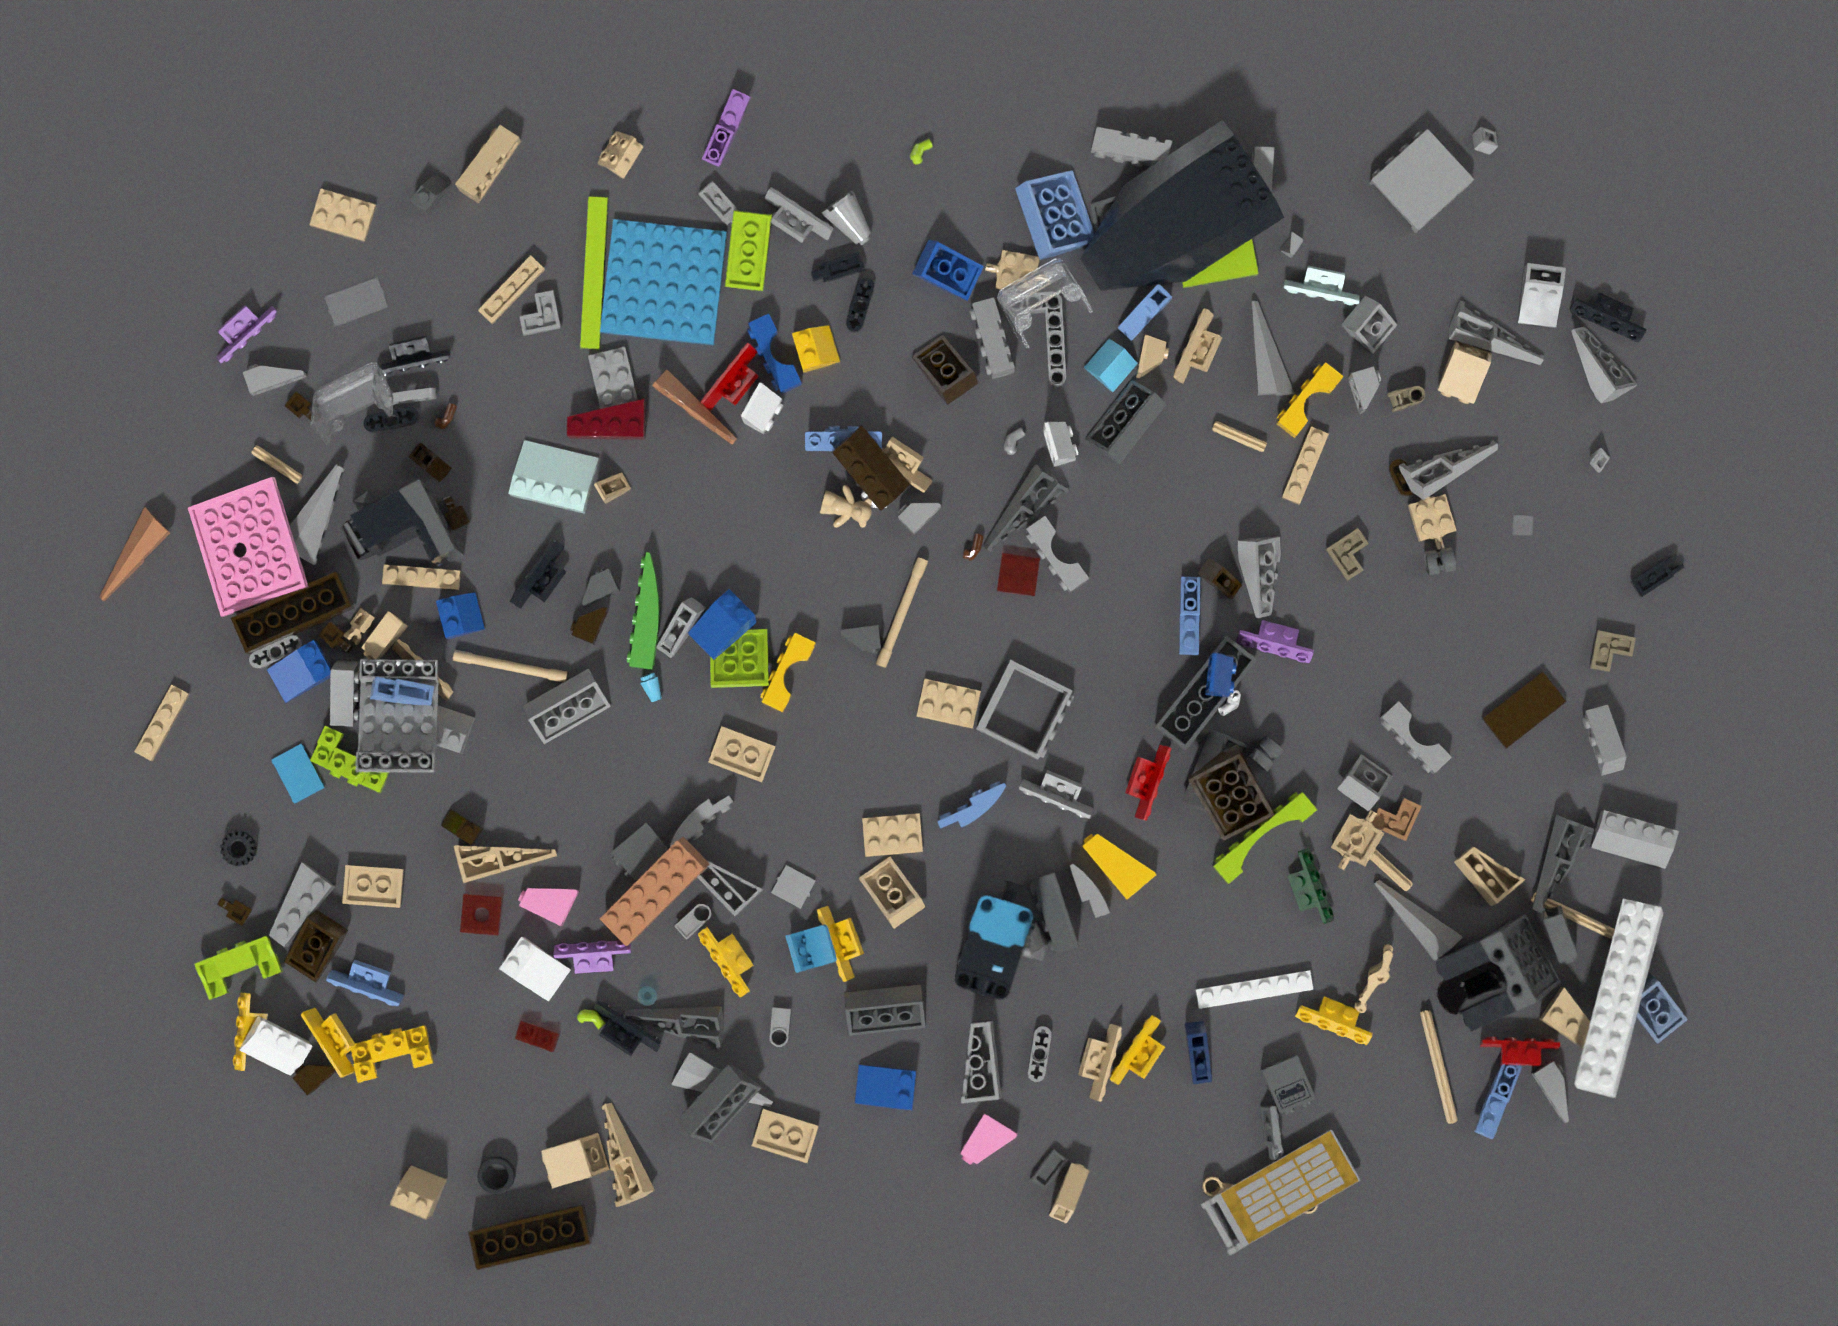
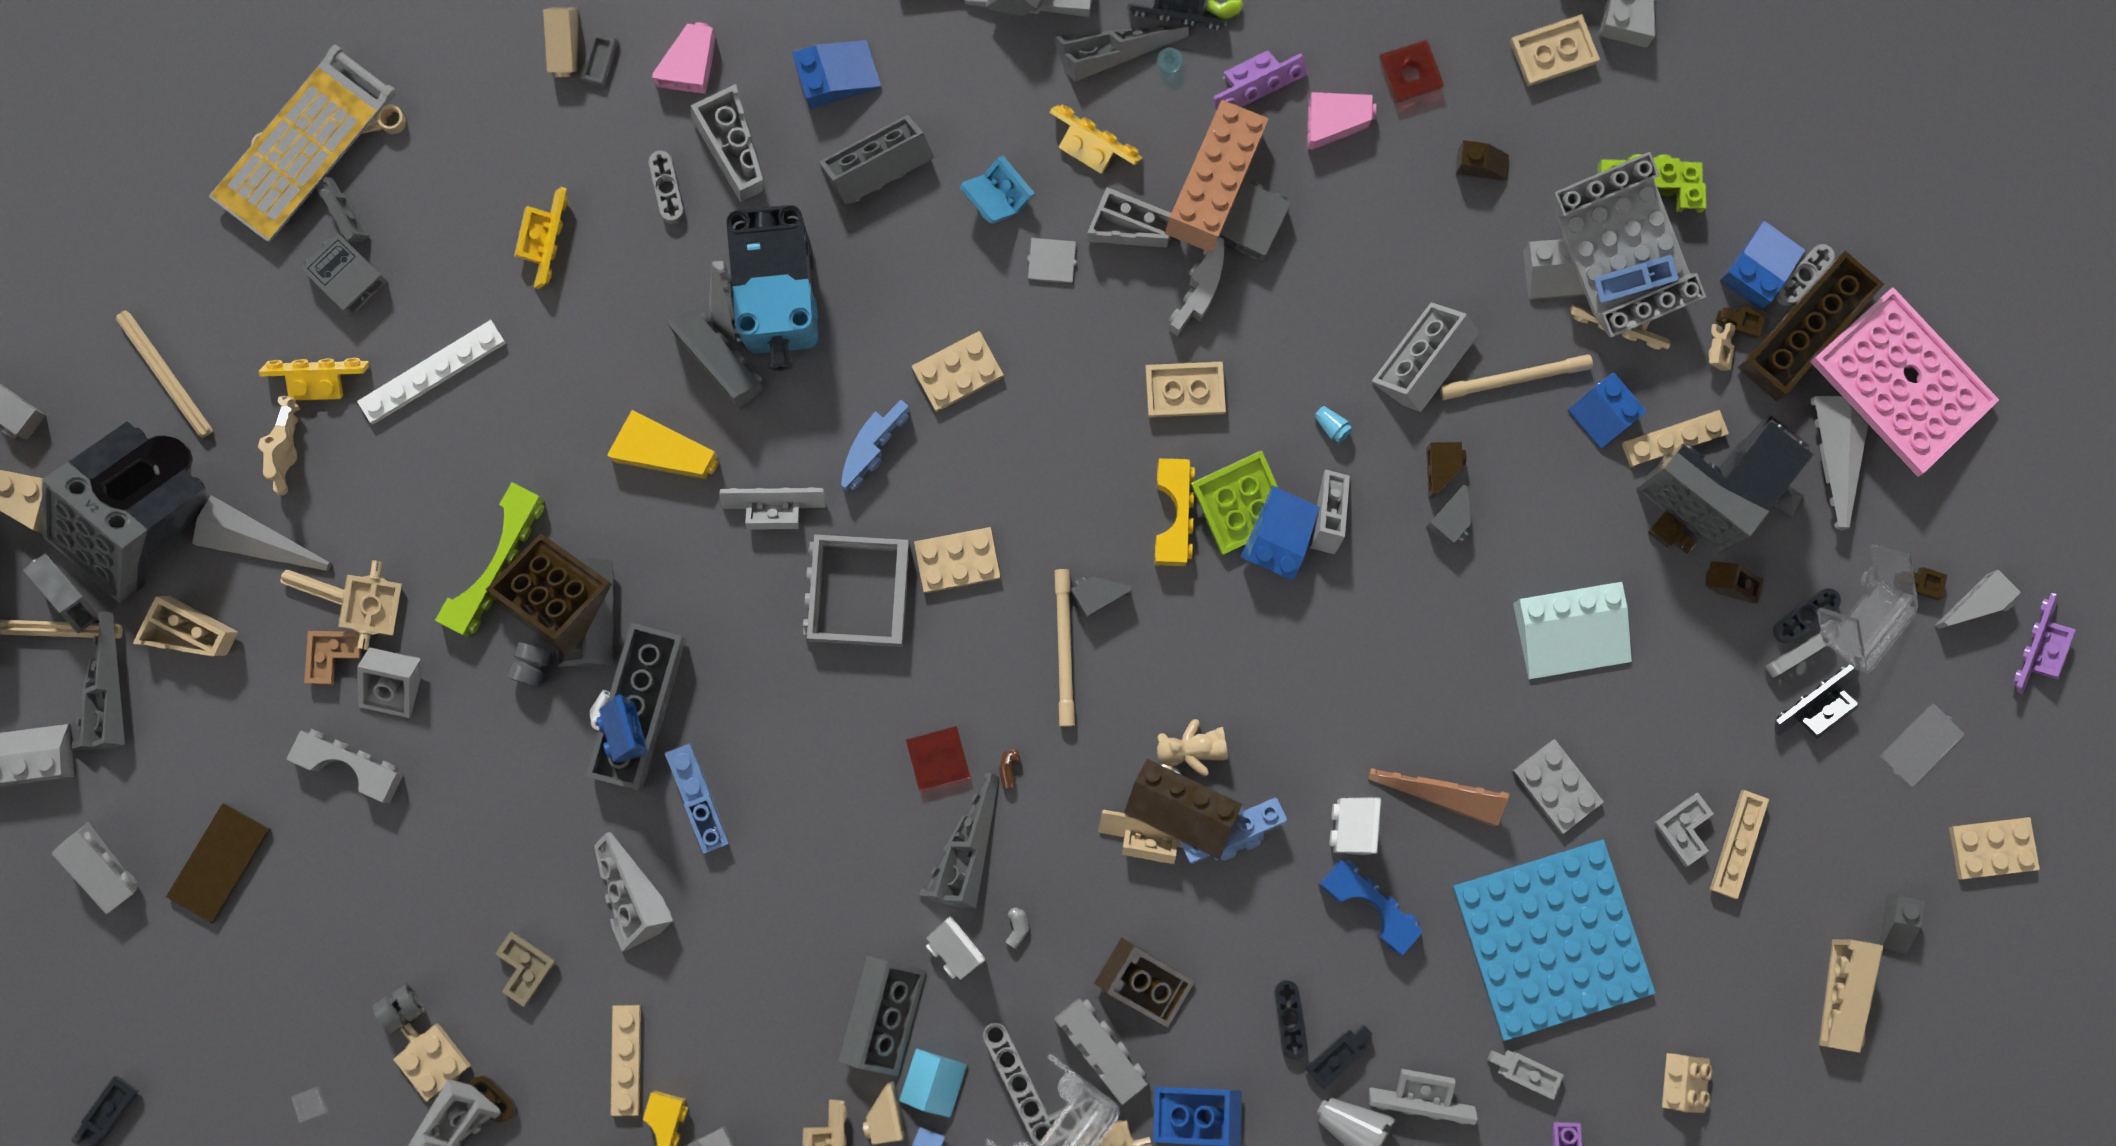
camera: 145 degrees right, 5 degrees down
(143, 540) = (2030, 337): nougat wedge -> none
(162, 722) = (1896, 136): tan plate -> none
(230, 840) = (1724, 37): black tyre -> none
(276, 464) = (1918, 500): tan axle -> none
(298, 773) = (1707, 143): dark azure piece -> none
(344, 693) = (1704, 257): light grey wedge -> none
(383, 636) = (1686, 346): tan slope -> none
(447, 418) = (1739, 647): reddish brown arm -> none
(481, 862) = (1437, 131): tan wedge -> none
(535, 968) = (1319, 34): white slope -> none
(542, 577) = (1529, 499): black bracket -> none
(594, 272) = (1646, 914): lime tile -> none
(612, 487) = (1496, 647): tan slope -> none
(613, 422) = (1532, 730): dark red wedge -> none
(646, 620) = (1377, 504): bright green slope -> none
(689, 924) = (1156, 165): light grey piece -> none
(734, 380) = (1406, 849): red bracket -> none
(748, 250) = (1465, 1027): lime tile -> none
(780, 1021) = (997, 95): light grey piece -> none
(815, 348) = (1322, 937): yellow slope -> none
(844, 941) = (962, 218): yellow bracket -> none
(892, 892) = (928, 300): tan slope -> none
(917, 515) = (1098, 778): light grey slope -> none
(1070, 575) = (870, 786): light grey arch -> none
(1088, 891) = (683, 402): light grey slope -> none
(1098, 1061) = (589, 207): tan bracket -> none
(1146, 779) = (667, 567): red bracket -> none
(1198, 1052) = (471, 268): dark blue slope -> none
(1220, 578) = (677, 863): dark brown slope -> none
(1239, 436) = (726, 1061): tan axle -> none
(1276, 640) = (573, 816): medium lavender bracket -> none
(1308, 887) = (410, 521): dark green bracket -> none
(1497, 1099) = (75, 363): medium blue slope -> none
(1520, 1052) = (62, 430): red bracket -> none
(1608, 644) = (139, 990): dark tan plate -> none

